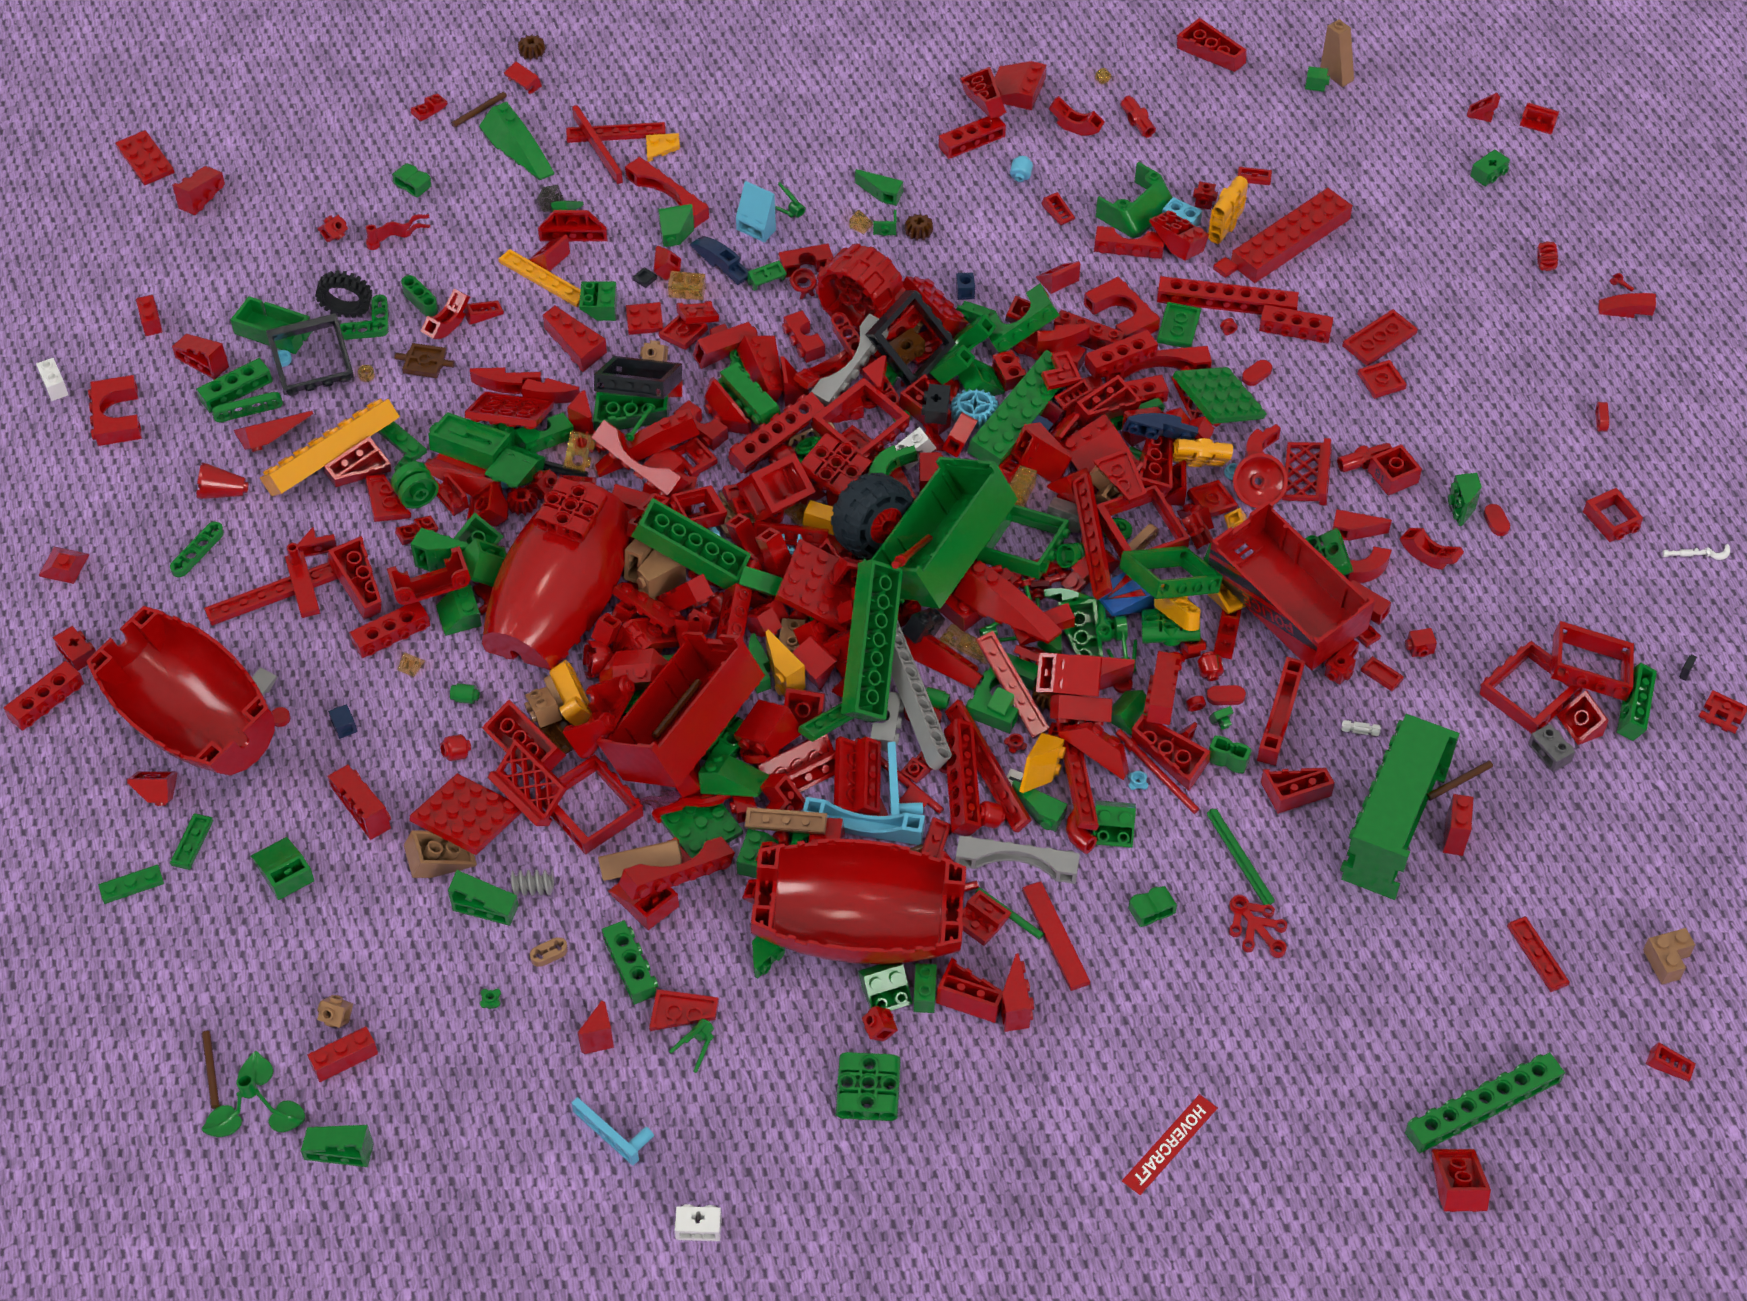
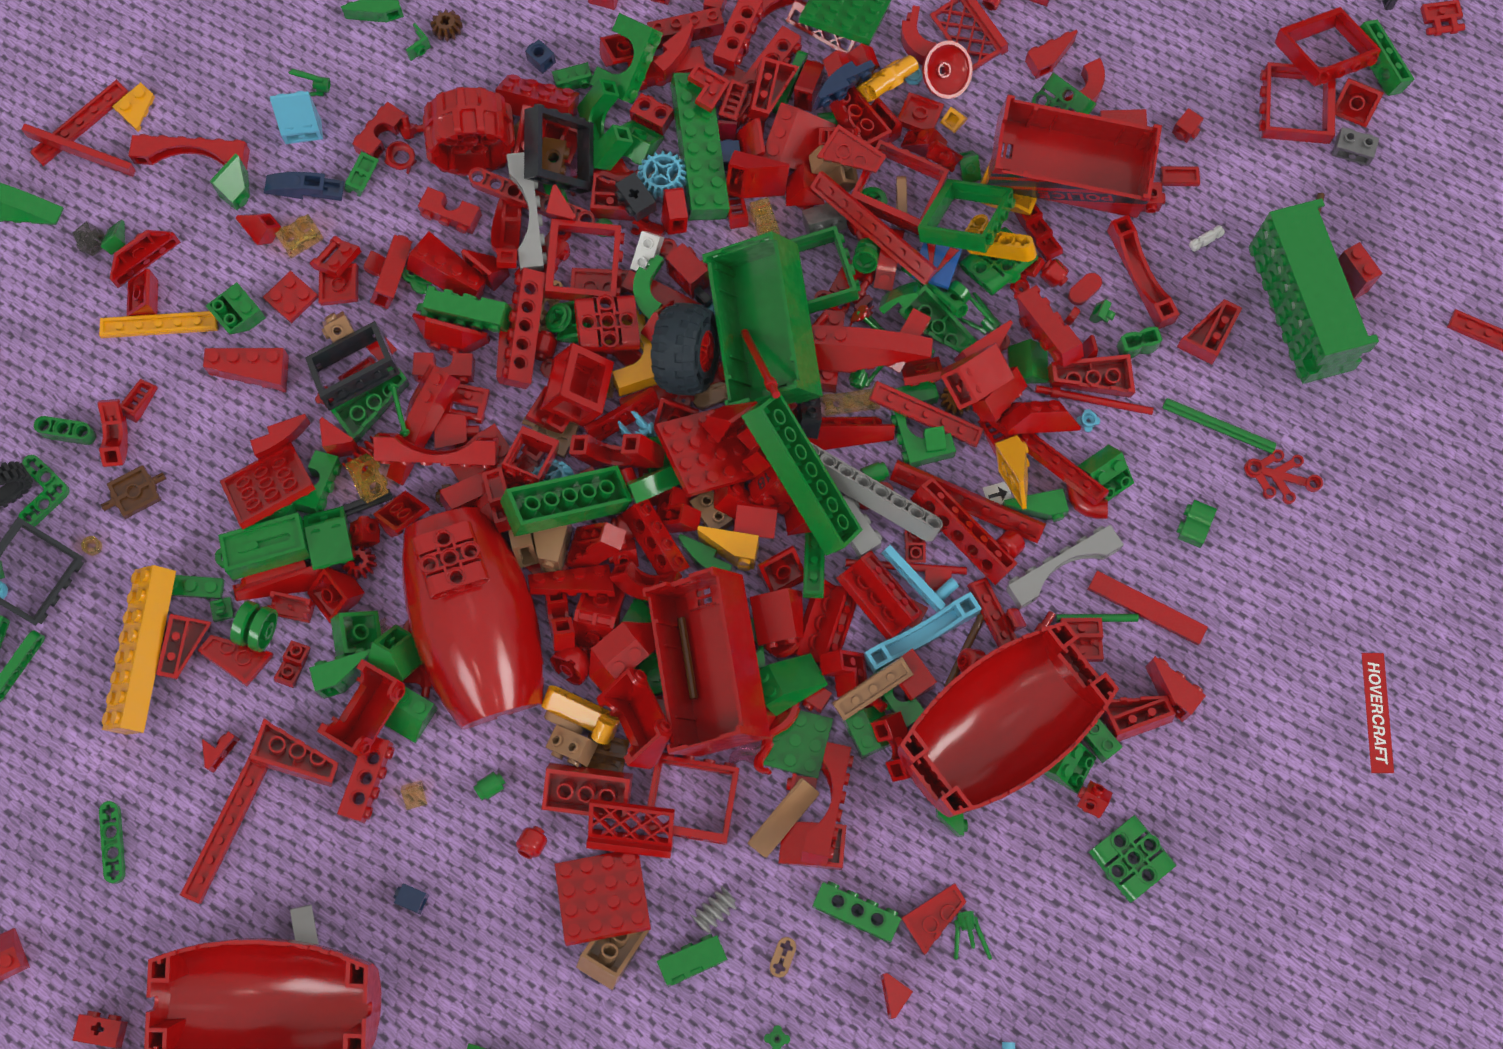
camera: 40 degrees left, 20 degrees up
(219, 483) = (70, 764): red cone -> none
(262, 434) = (59, 682): red wedge -> none
(281, 716) = (350, 938): red tile -> none
(301, 581) = (247, 801): red piece -> none
(360, 801) = (499, 960): red wedge -> none
(500, 381) = (220, 460): red slope -> none
(645, 277) = (251, 254): black tile -> none
(860, 222) = (390, 57): clear yellow slope -> none
(1015, 738) = (966, 457): red plate -> none
(1427, 551) = (1125, 36): red arch -> none

